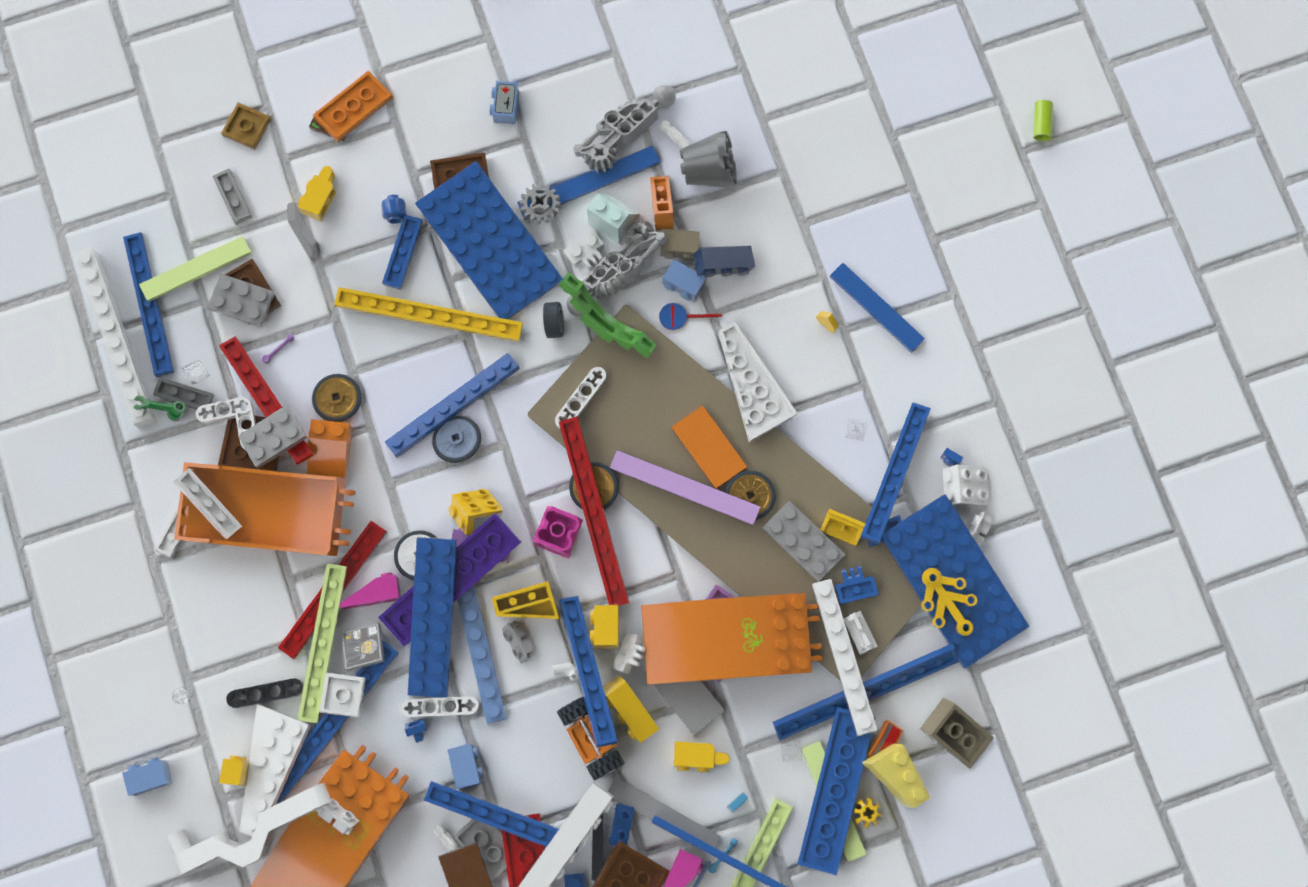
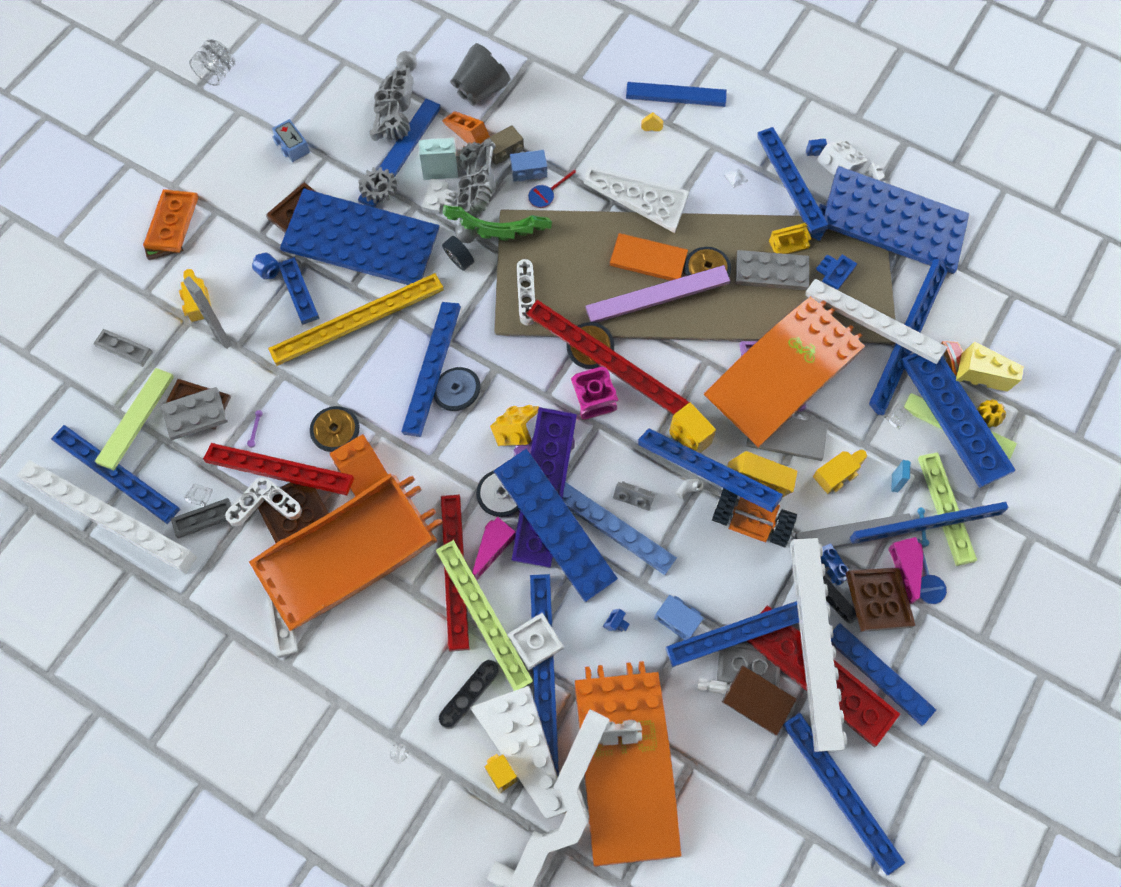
camera: 40 degrees left, 10 degrees down
(146, 777) = (426, 844): medium blue brick -> none
(174, 411) = (205, 535): green brick -> none
(207, 503) = (296, 579): white plate -> none
(246, 126) = (92, 291): pearl gold tile -> none
(272, 436) = (308, 487): light grey plate -> none
(363, 647) = (519, 592): tile -> none
(440, 707) = (616, 588): white beam -> none
(527, 602) = (617, 459): yellow wedge -> none
(629, 653) = (725, 437): white hinge -> none
(674, 134) = (435, 83): white axle -> none
(724, 260) = (546, 130): dark blue brick -> none
(860, 632) = (869, 298): white hinge -> none
(946, 599) = (905, 230): yellow plant -> none
(956, 732) = (992, 314): dark tan slope -> none

